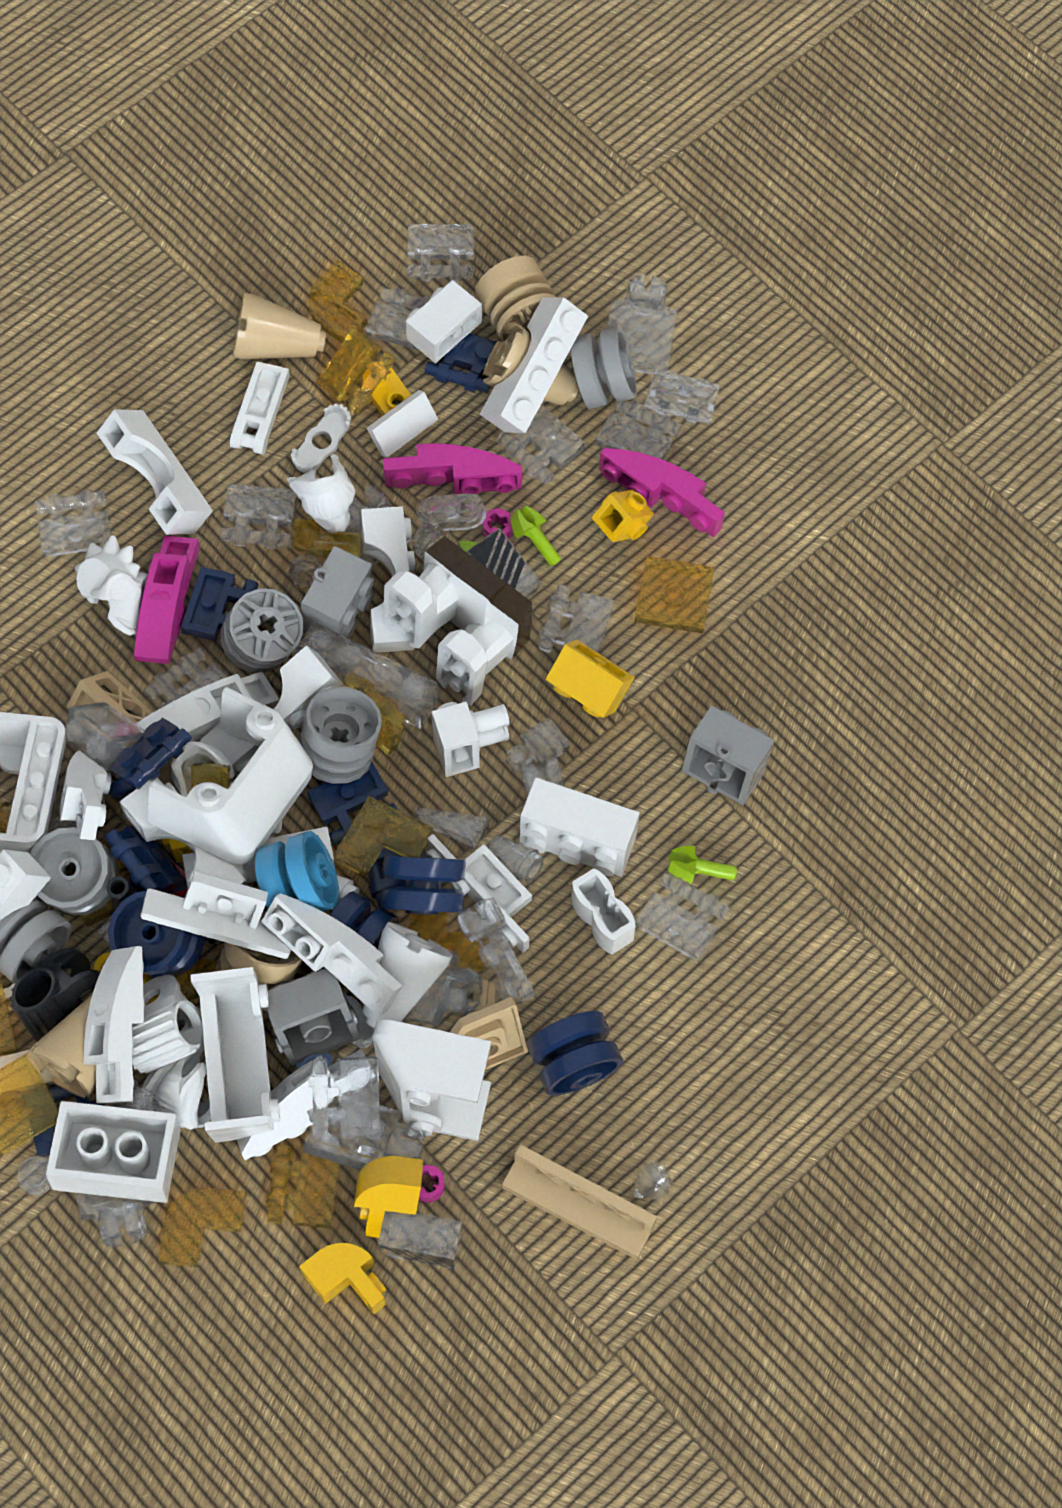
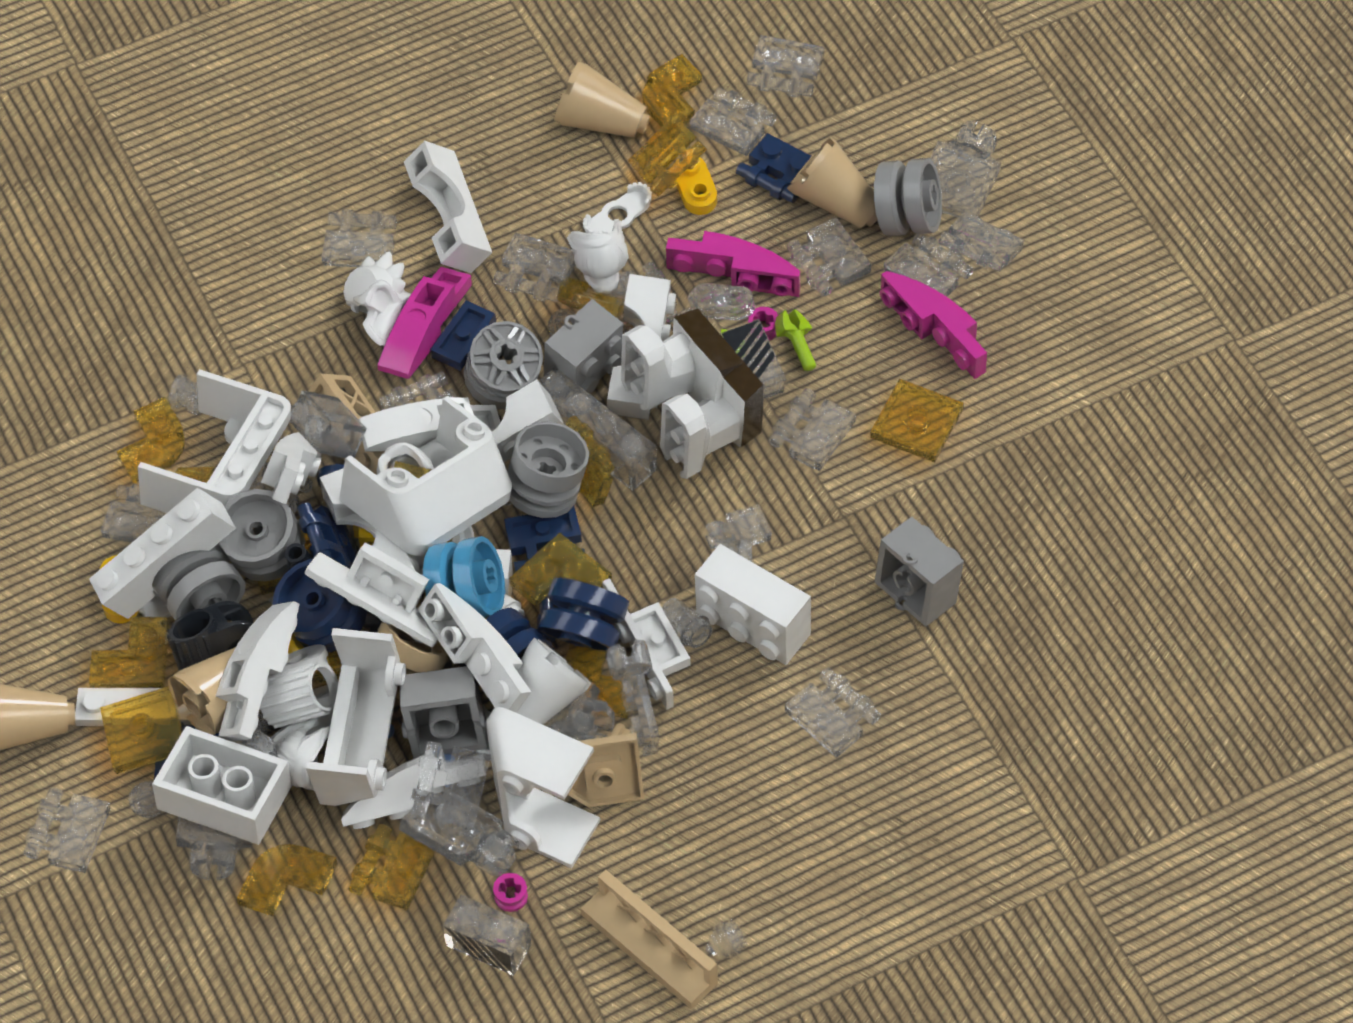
camera: 20 degrees right, 10 degrees down
(150, 753) = (373, 434): dark blue plate -> none
(260, 407) = (566, 171): white plate -> none
(340, 1266) = (405, 943): yellow brick -> none
(387, 1185) = (468, 874): yellow brick -> none
(402, 423) = (699, 212): white tile -> none
(443, 321) = (765, 126): white brick -> none
(459, 827) = (641, 584): clear piece -> none
(461, 734) = (669, 497): white brick -> none
(512, 292) = (848, 114): tan wheel -> none
(519, 396) = (820, 200): white arch -> none
(574, 1053) = (684, 802): dark blue wheel -> none
(589, 679) = (807, 476): yellow brick -> none
(597, 906) = (753, 685): white brick -> none
(623, 515) = (886, 336): yellow brick -> none
(686, 865) = (849, 663): lime bar -> none

